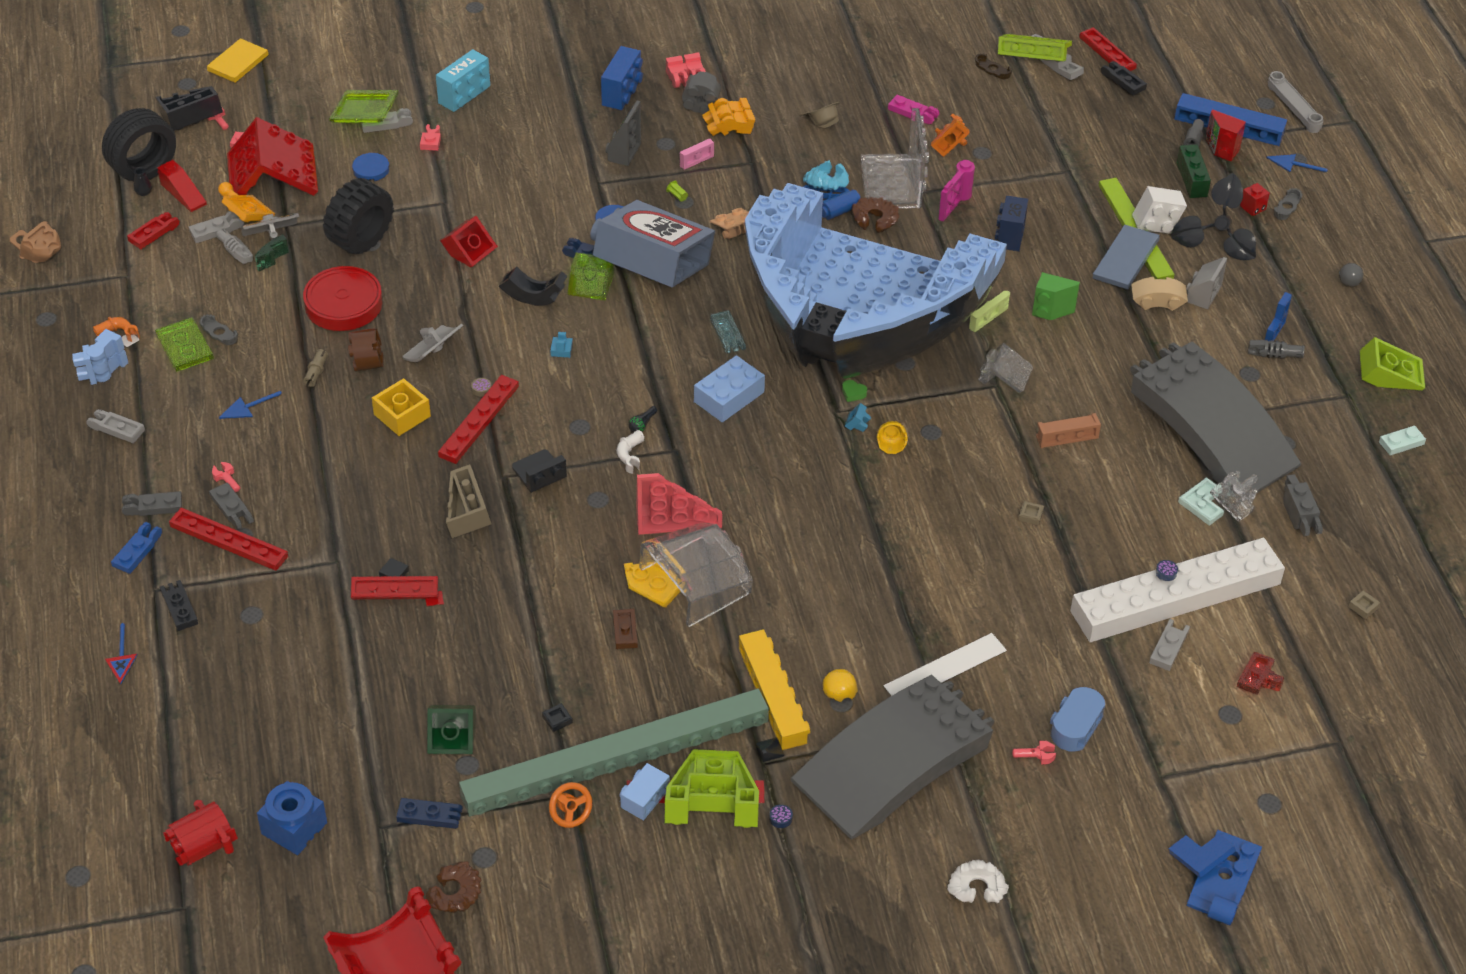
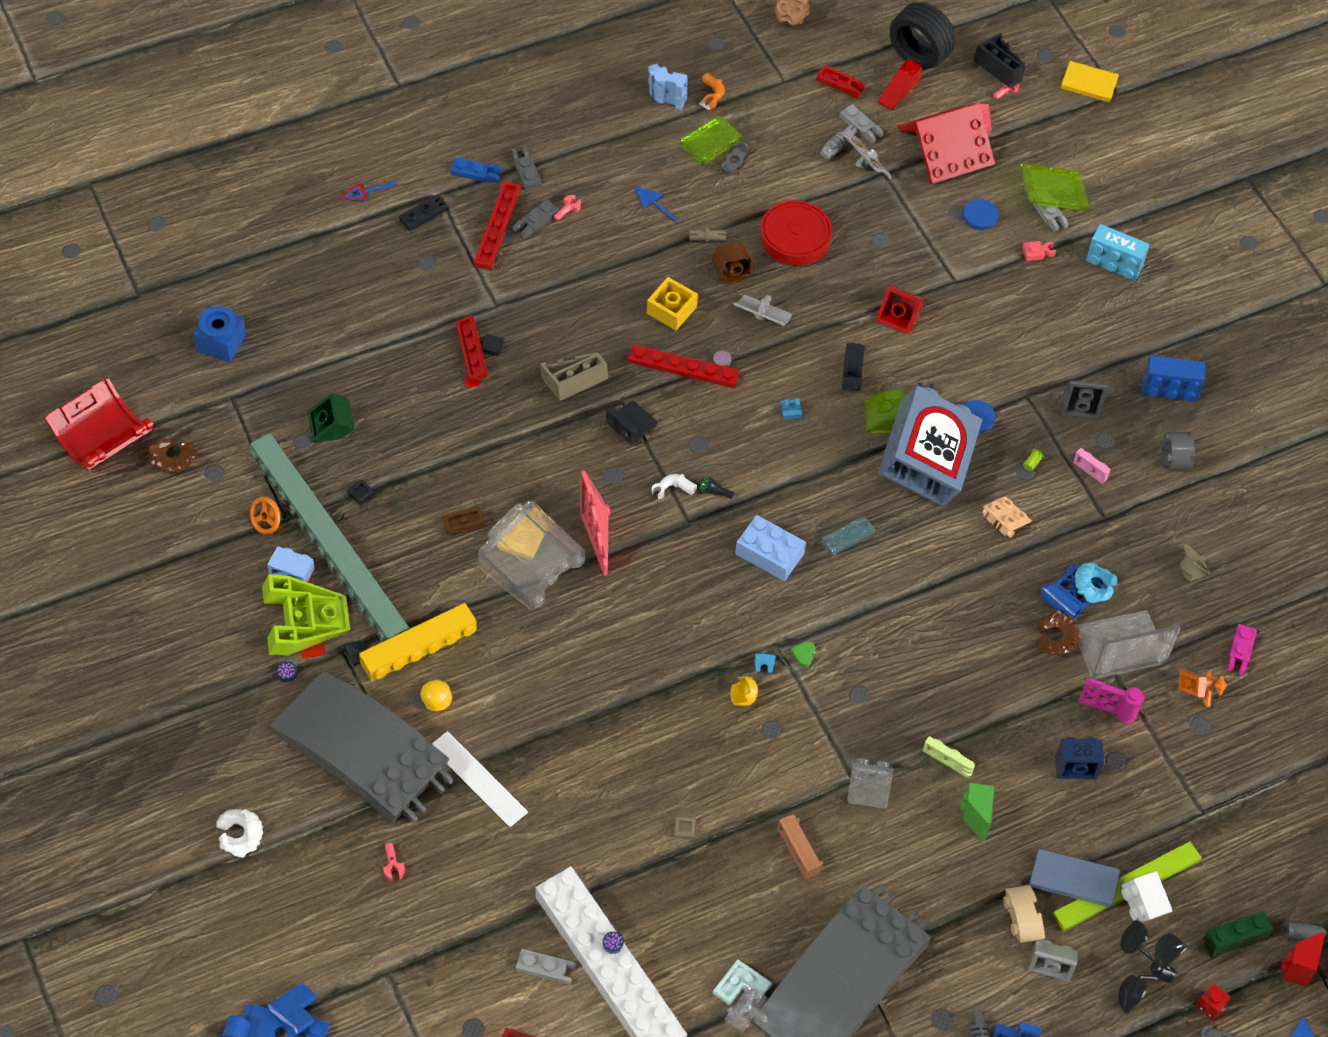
camera: 75 degrees right, 10 degrees up
(116, 425) = (601, 121): light grey hinge -> none
(142, 184) = (894, 57): black cone -> none
(200, 833) = (194, 281): red container -> none
(244, 206) = (886, 135): light orange plate -> none
(269, 252) = (834, 167): clear green slope -> none
(358, 216) = (884, 211): black tyre -> none
(429, 813) = (247, 423): dark blue hinge -> none
(679, 71) = (1216, 434): coral legs -> none
(729, 116) = (1157, 483): light orange hips -> none
(861, 304) = (895, 601): light blue piece -> none
(1077, 718) = (433, 891): medium blue brick -> none

